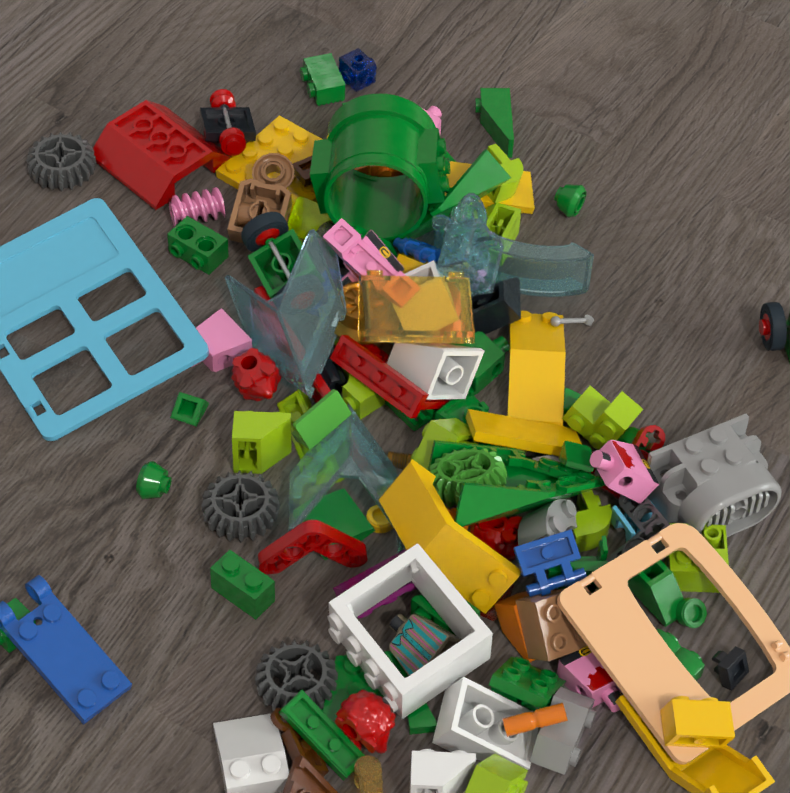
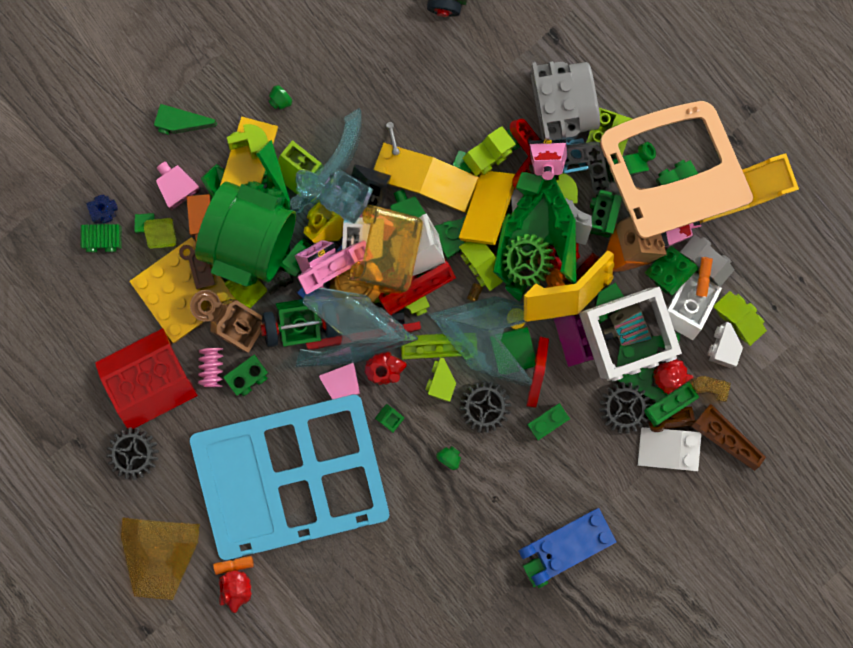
camera: 70 degrees left, 35 degrees up
(227, 123) = (133, 323): plate -> none
(321, 419) = (441, 337): bright green panel -> none
(420, 250) = (310, 214): blue plate -> none
(546, 554) = (608, 232): blue plate -> none
(697, 723) = (737, 183): yellow brick -> none
(731, 667) = (692, 143): black tile -> none

